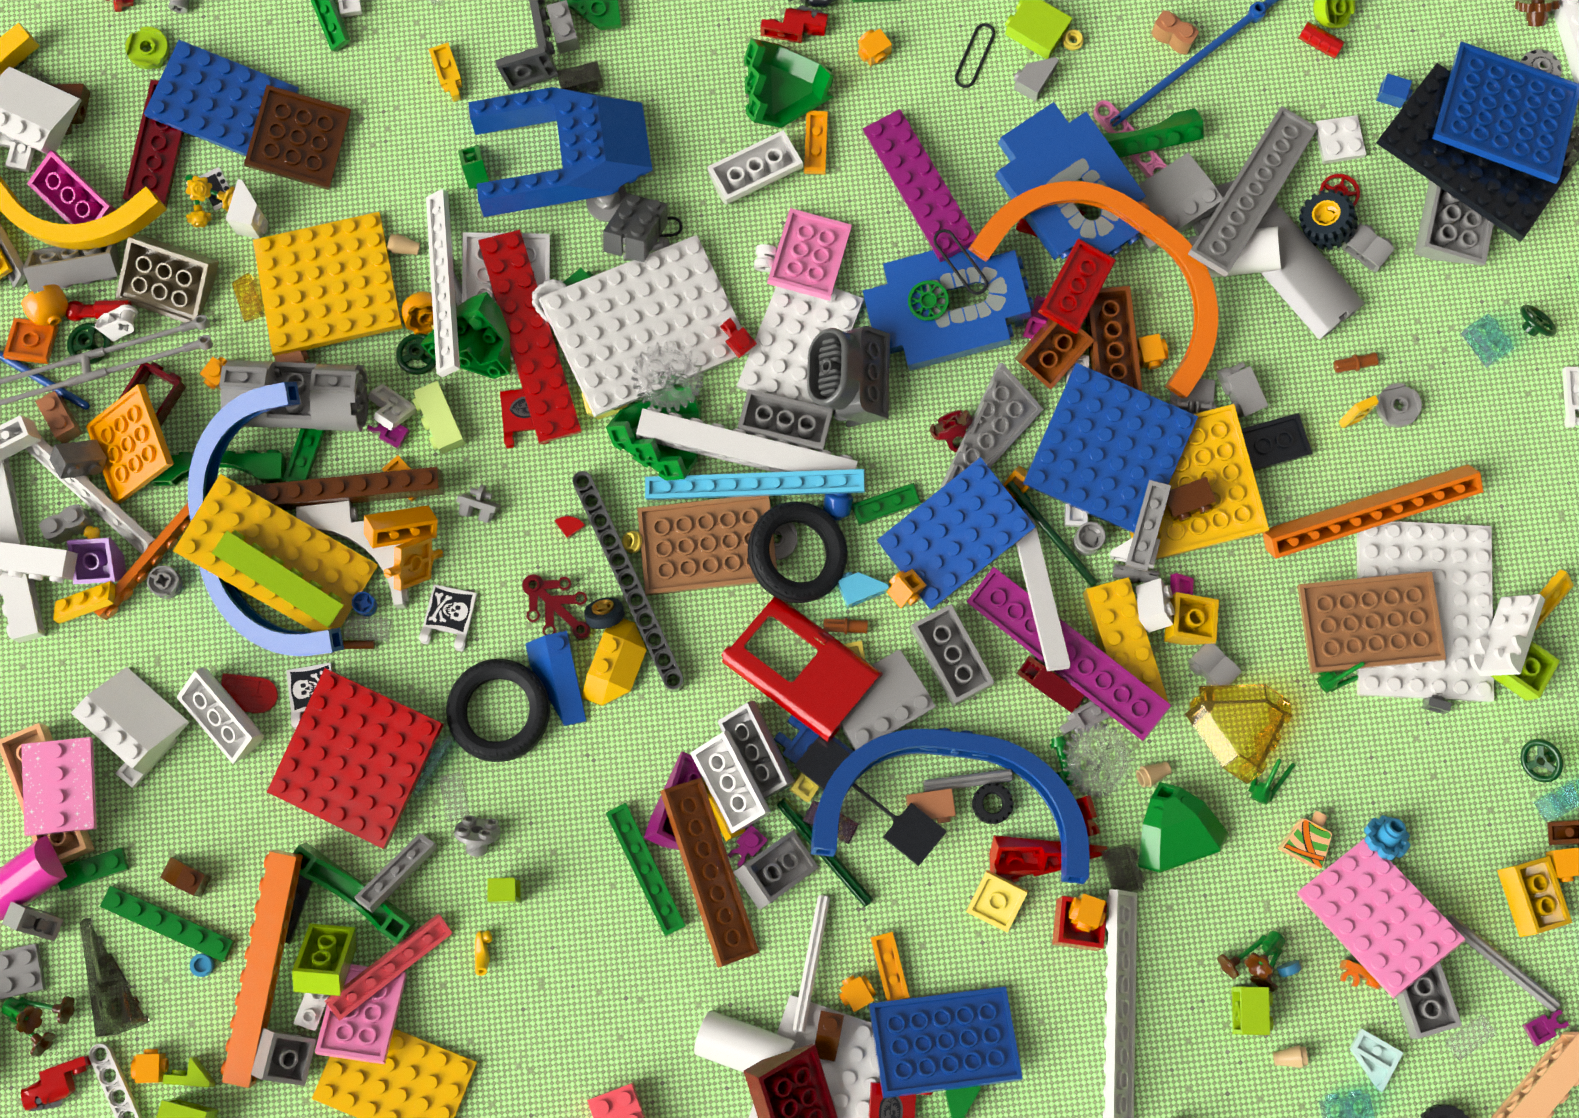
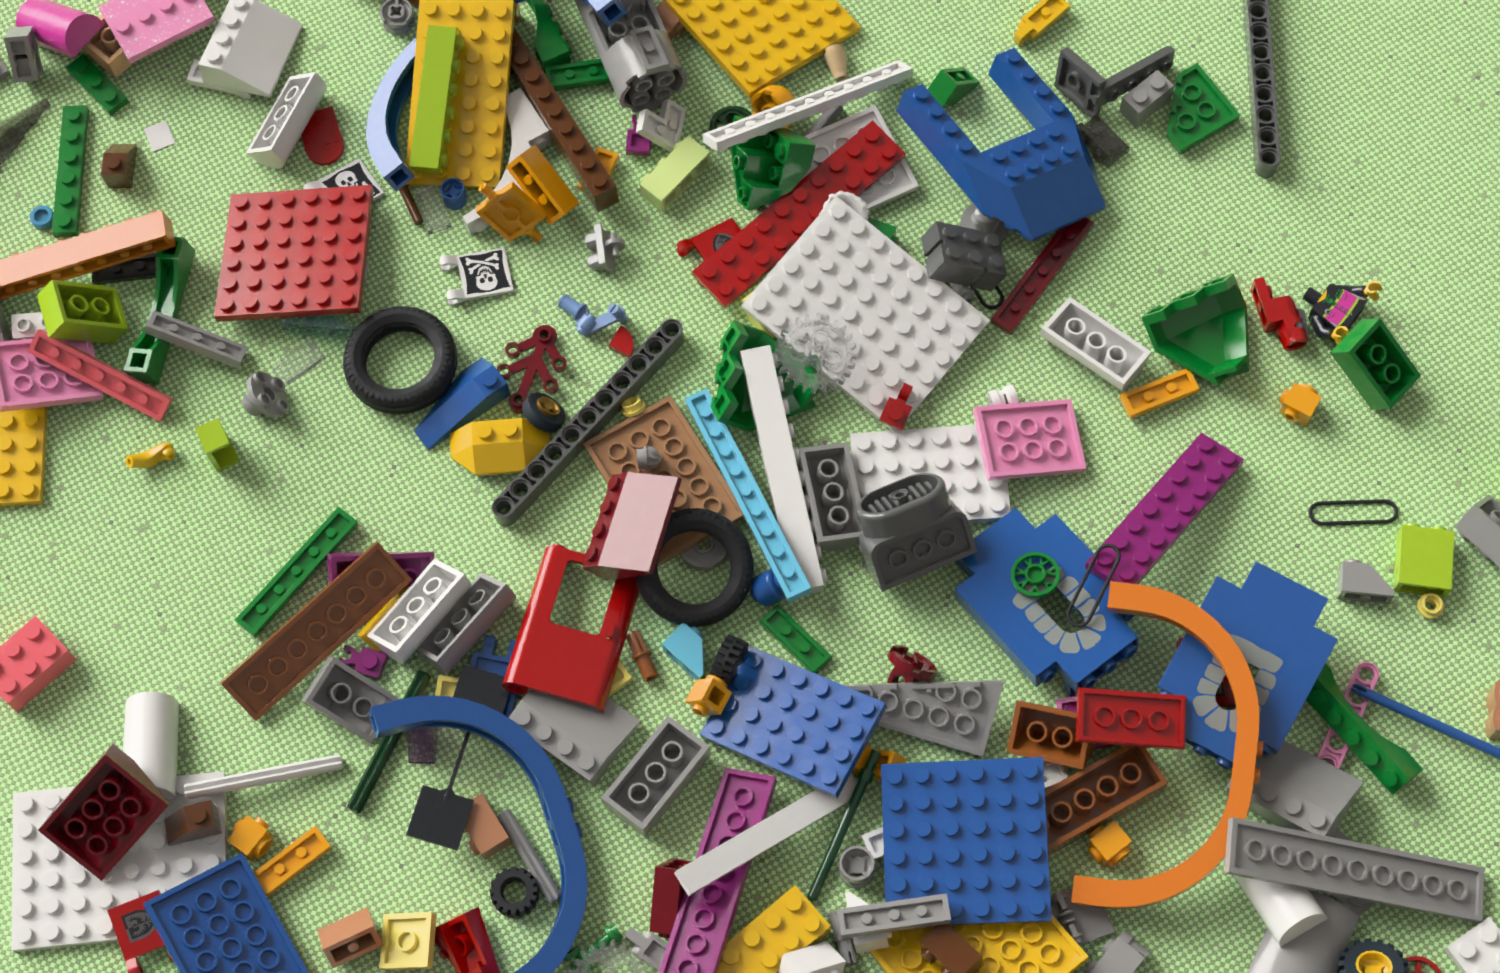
camera: 70 degrees right, 10 degrees down
(172, 833) = (159, 136): none -> white sticker
(538, 546) = (586, 322): none -> medium blue pin
(675, 183) = (1040, 275): none -> dark red plate
(687, 547) = (648, 458): none -> light grey plate
(747, 581) = (631, 525): none -> slope
(884, 559) = (729, 658): none -> black tyre
(975, 944) = (349, 937): none -> nougat brick

